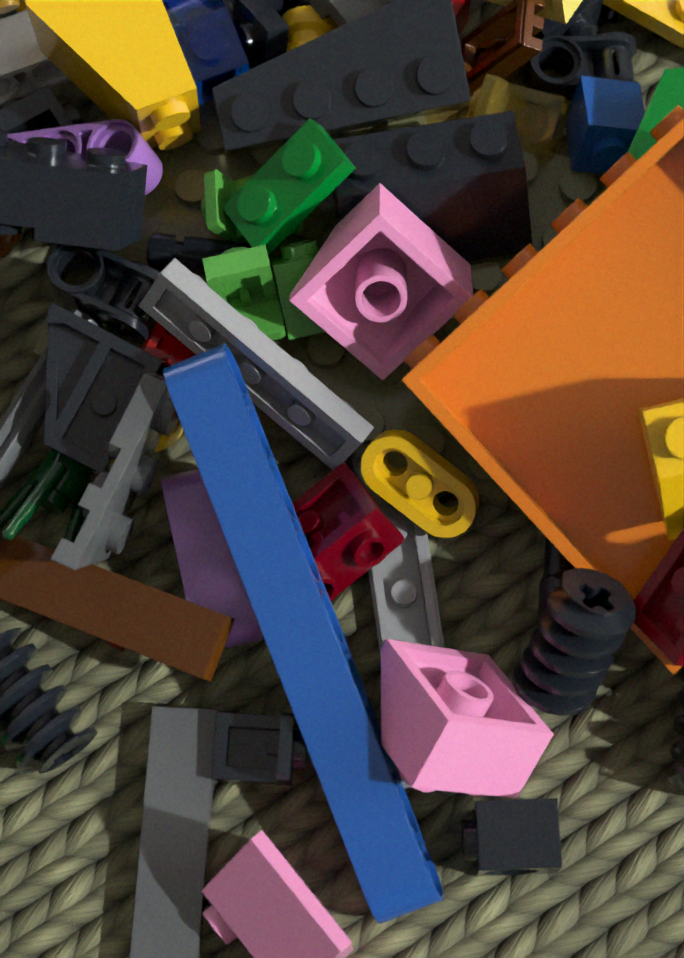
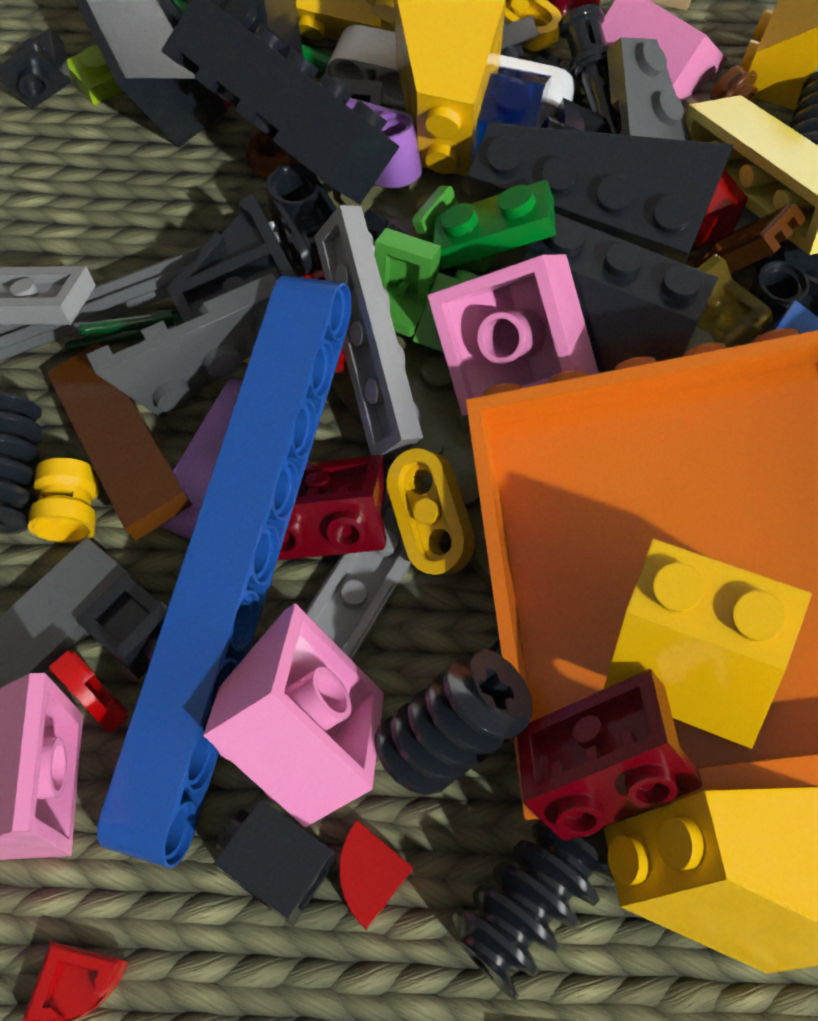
camera: 30 degrees right, 10 degrees down
(109, 690) = (64, 500): none -> yellow wheel
(278, 826) = (89, 691): none -> red tile
(584, 795) = (369, 874): none -> red tile

